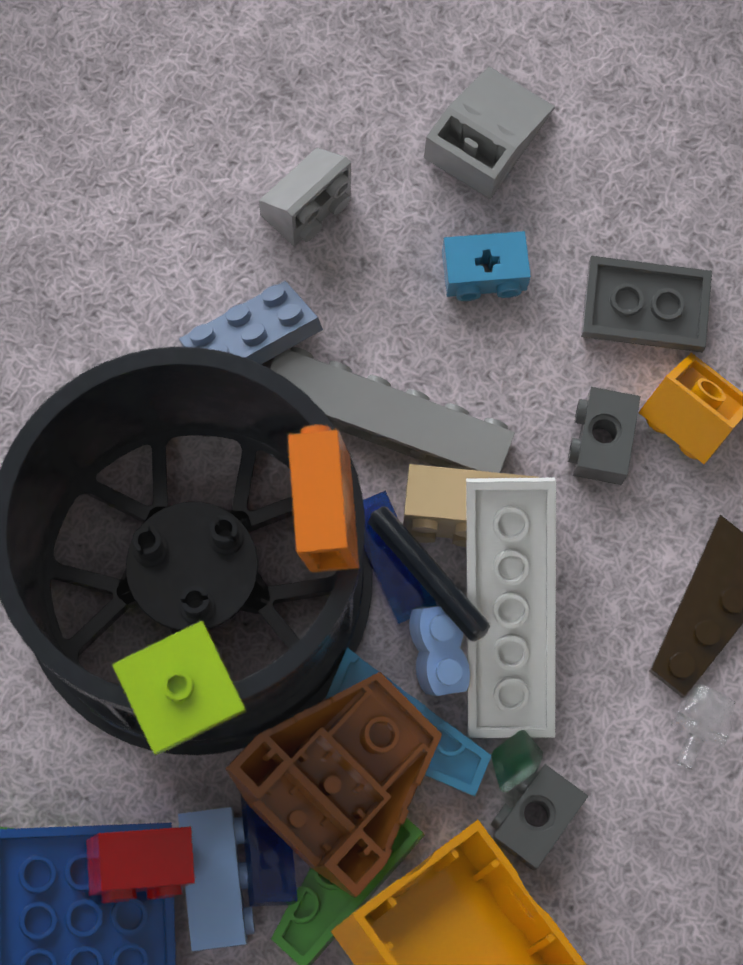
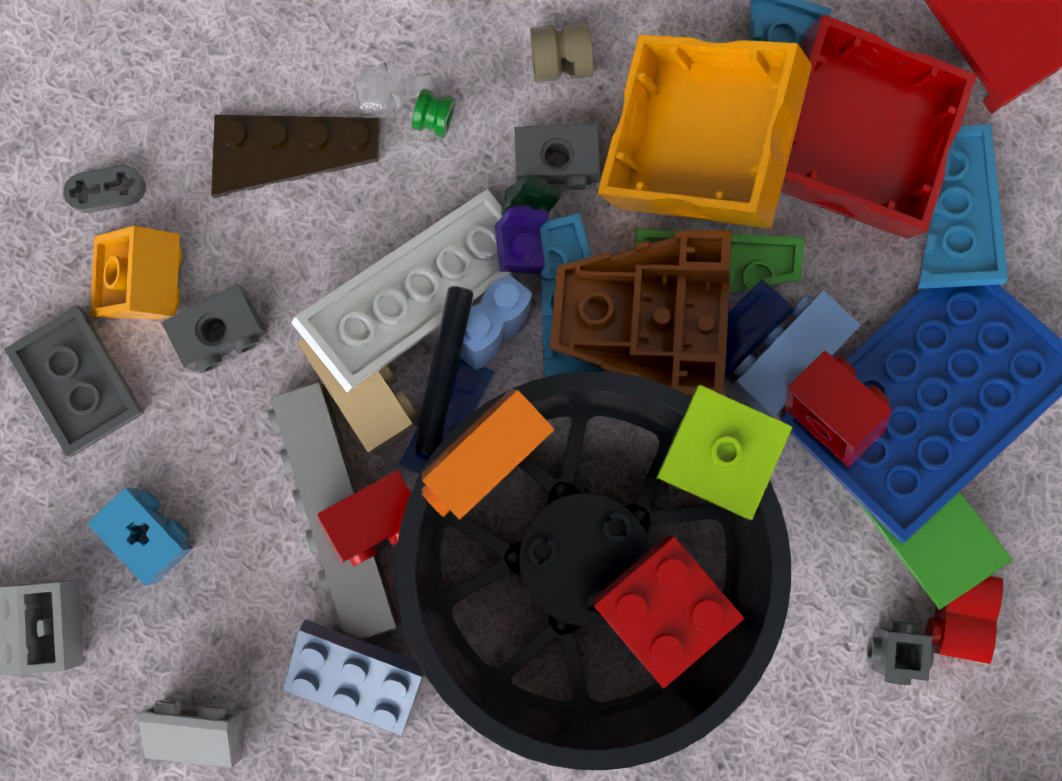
camera: 125 degrees left, 10 degrees up
(101, 545) = (667, 610): none -> red brick
(361, 415) = (365, 519): none -> red brick
(488, 725) = (520, 240): none -> dark purple bracket
(626, 892) = (561, 51): none -> dark tan wheel
(654, 743) = (433, 113): none -> green wheel

